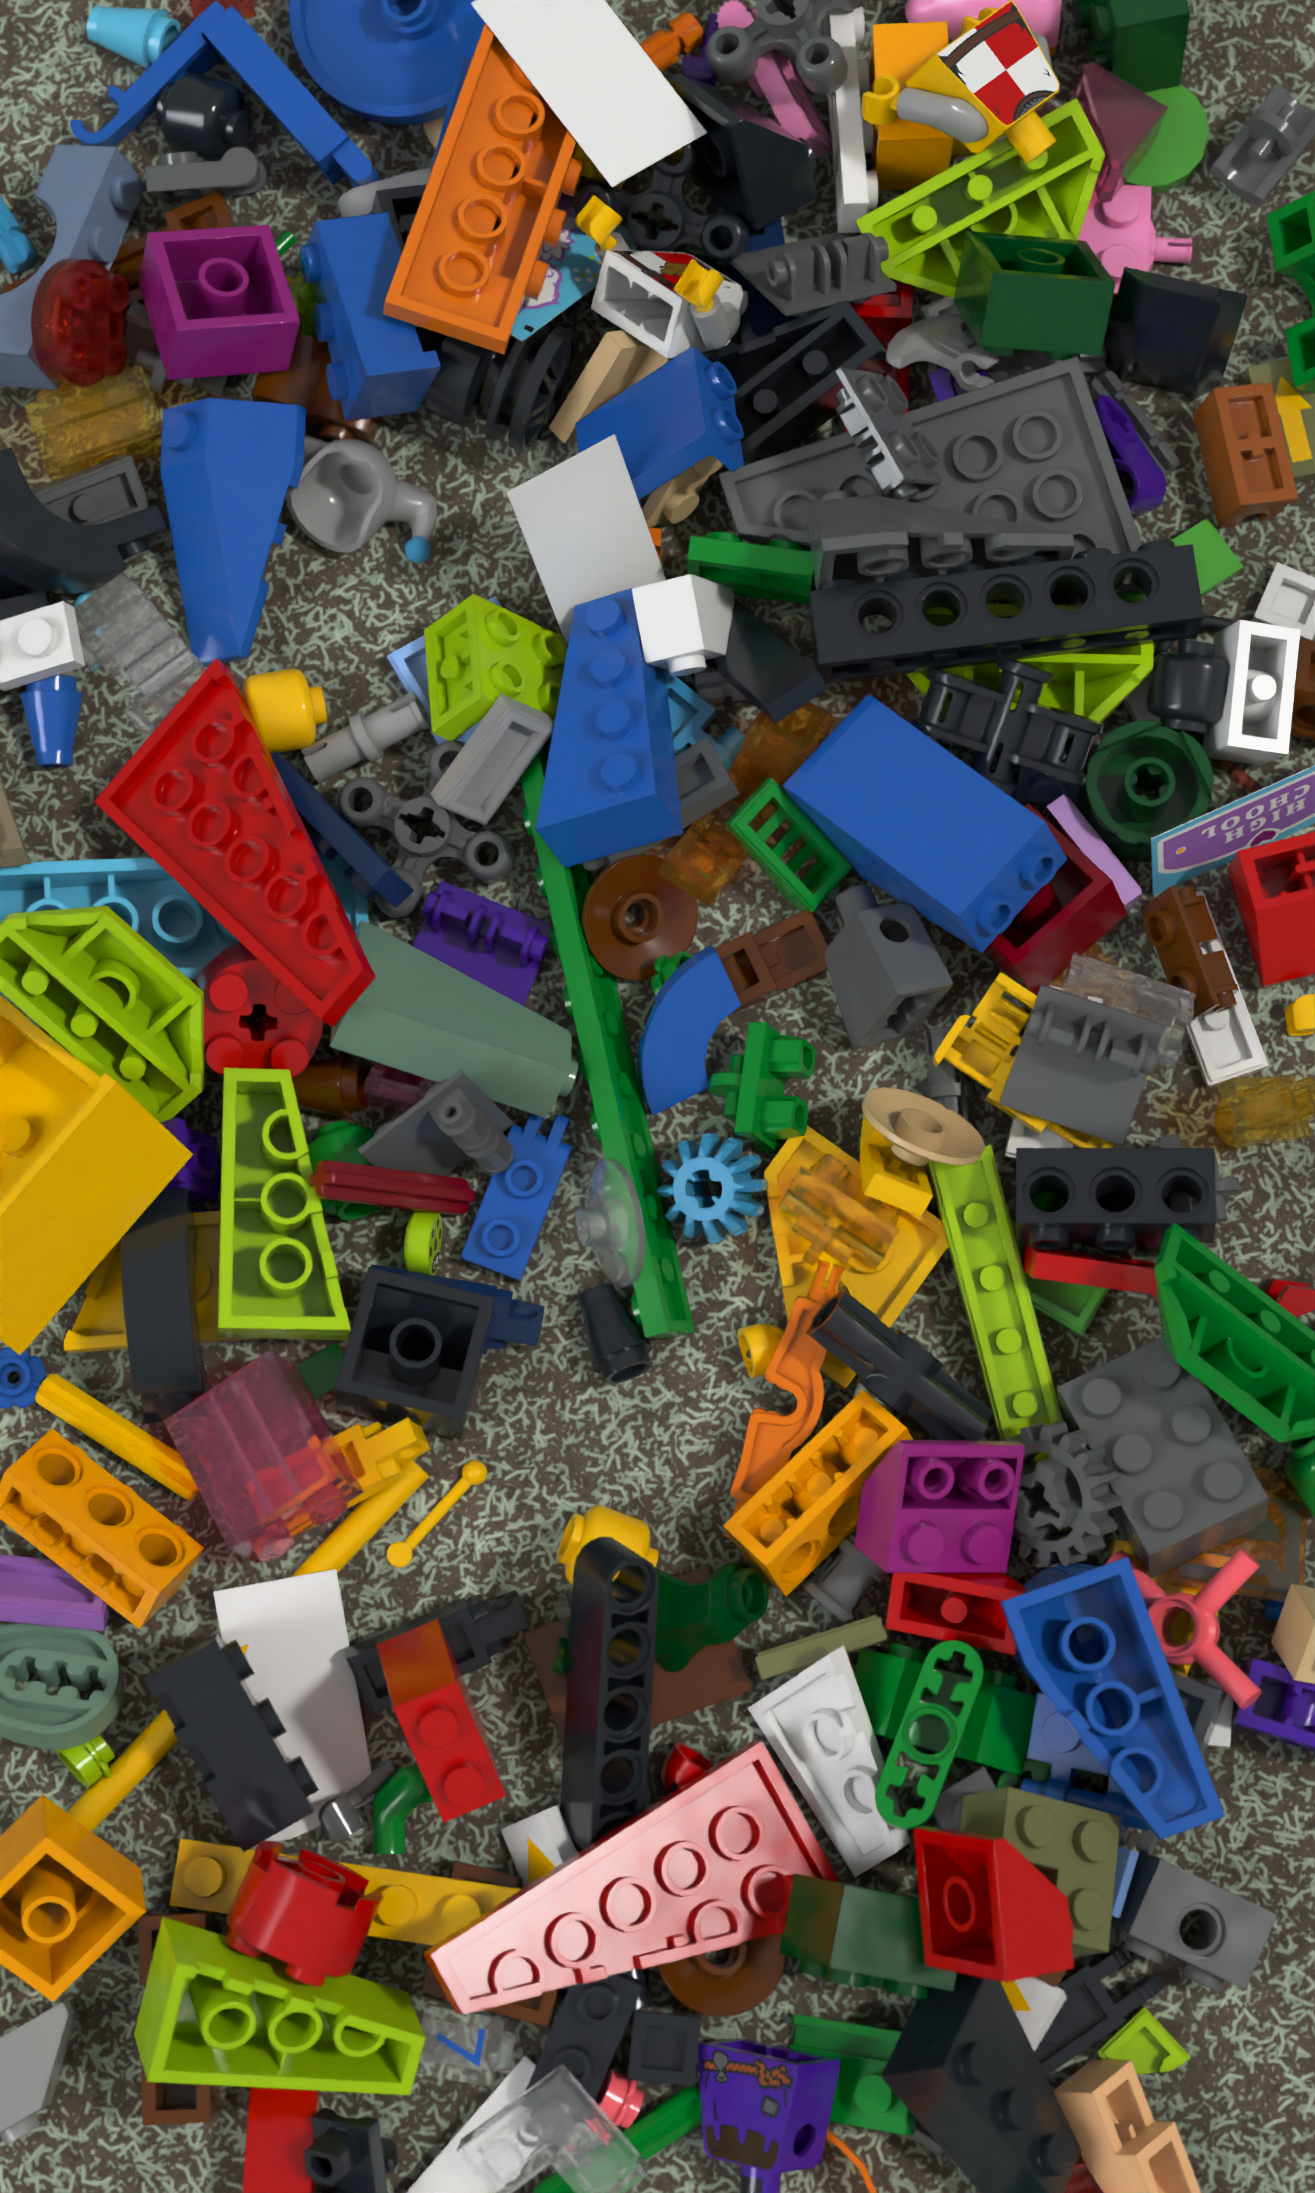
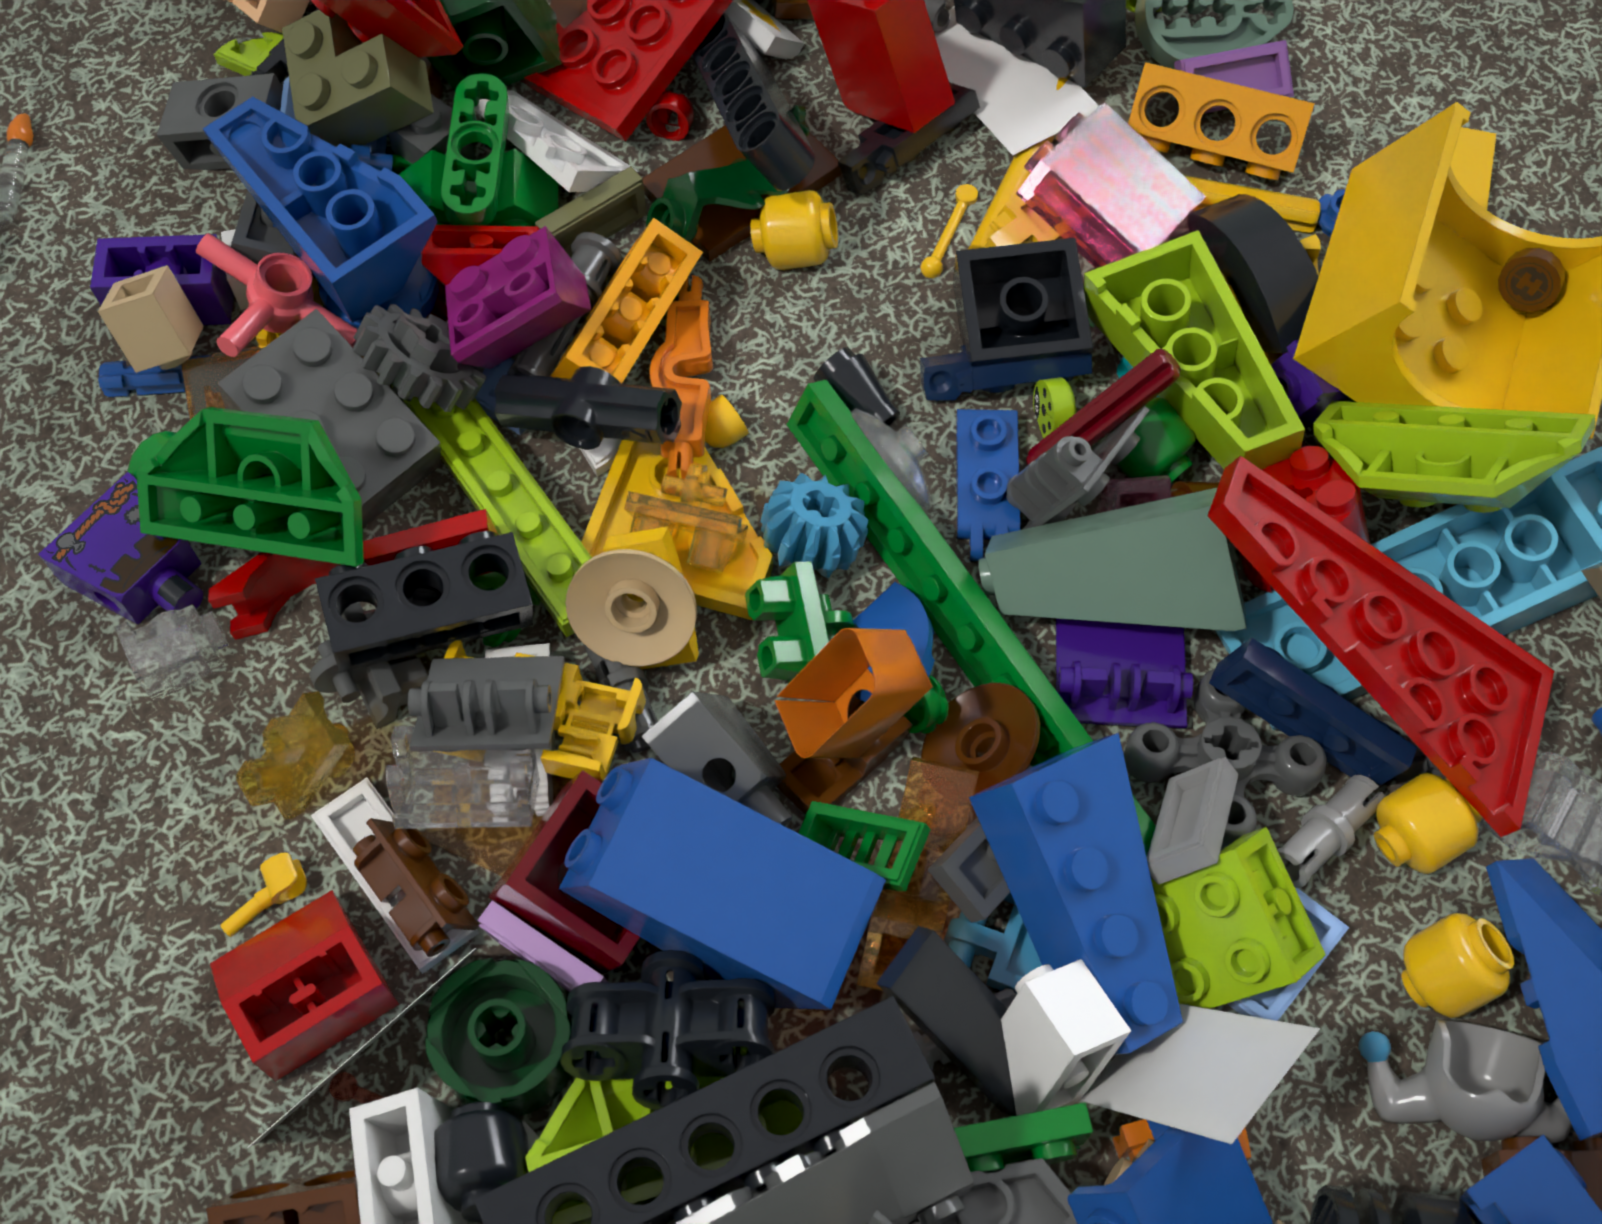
camera: 160 degrees right, 15 degrees down
(319, 583) = (1457, 965): none -> yellow head
(780, 954) = (839, 673): none -> orange piece

